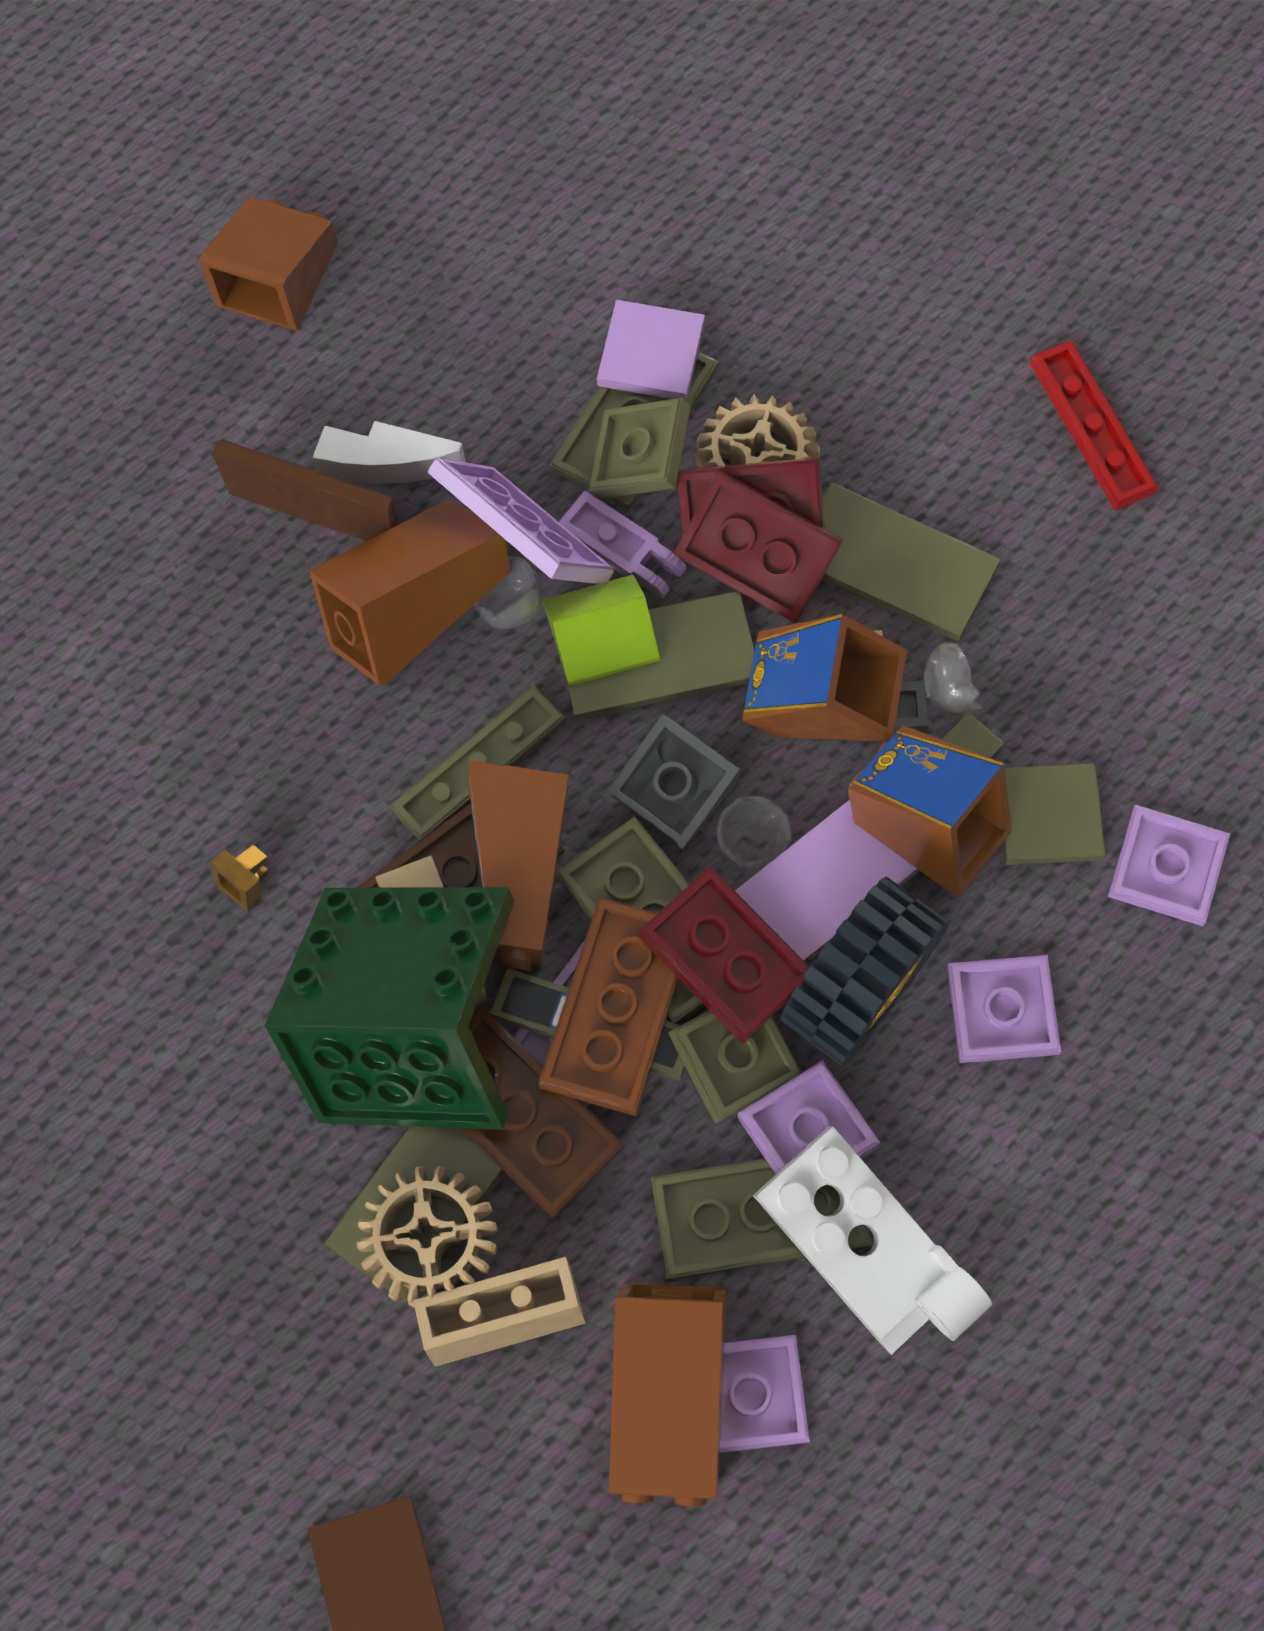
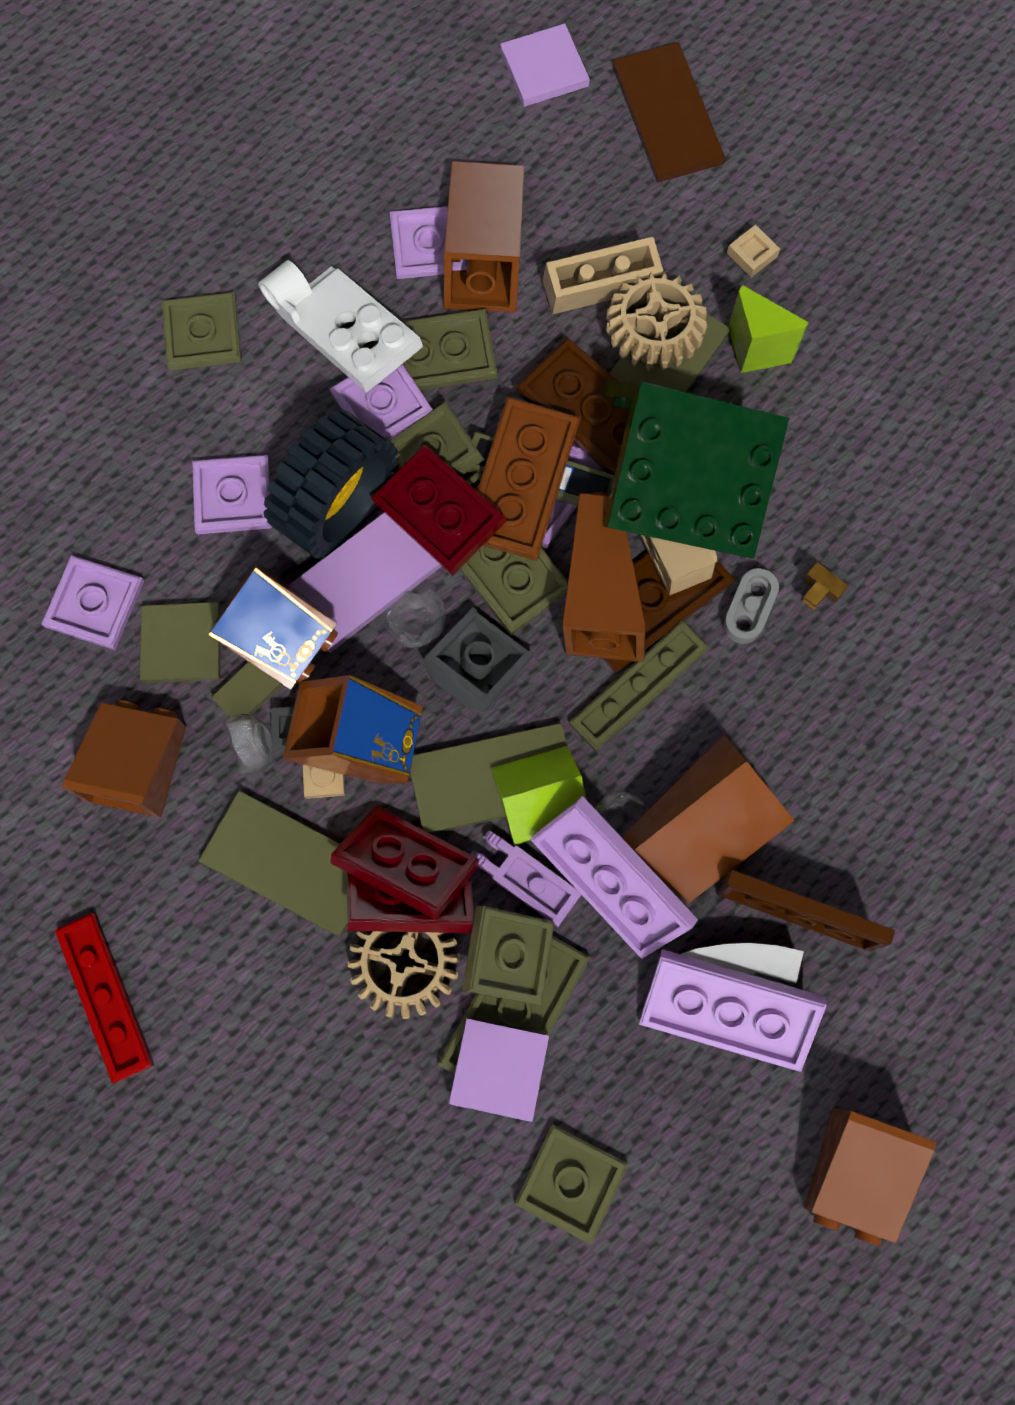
camera: 175 degrees right, 5 degrees up
(280, 1367) = (753, 250): none -> tan plate
(285, 1206) = (763, 332): none -> lime slope
(330, 857) = (751, 607): none -> light grey plate
(397, 405) = (732, 1010): none -> lavender tile
(576, 259) = (571, 1184): none -> olive tile
(1070, 1249) = (201, 331): none -> olive tile
(1096, 656) = (127, 758): none -> dark orange slope

